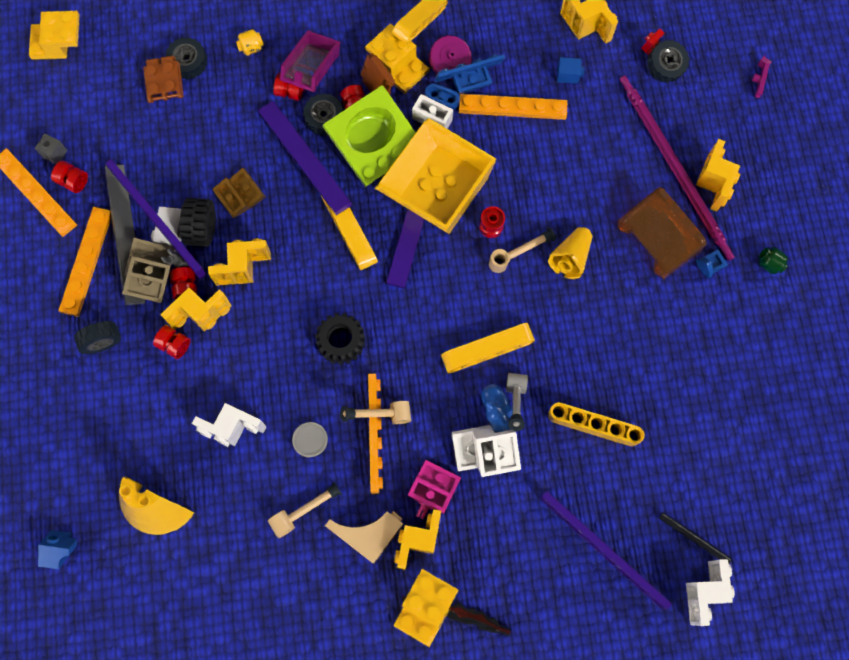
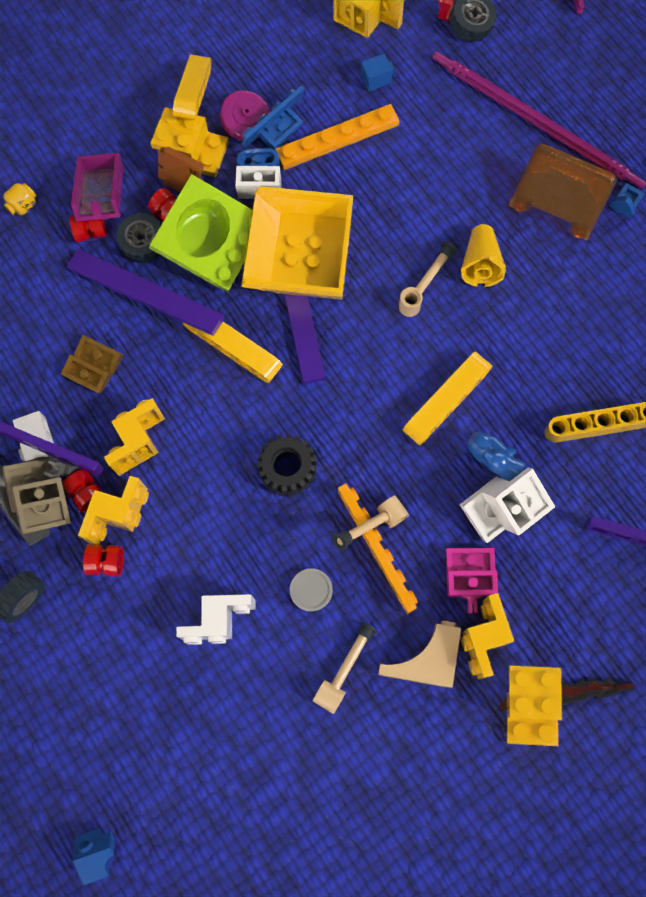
camera: 20 degrees left, 0 degrees up
(149, 511) = (178, 759): yellow cone -> none
(197, 222) = (64, 415): black tyre -> none
(492, 222) = (382, 264): red wheel -> none
(517, 385) = (501, 421): light grey piece -> none
(718, 175) = (588, 106): yellow bracket -> none

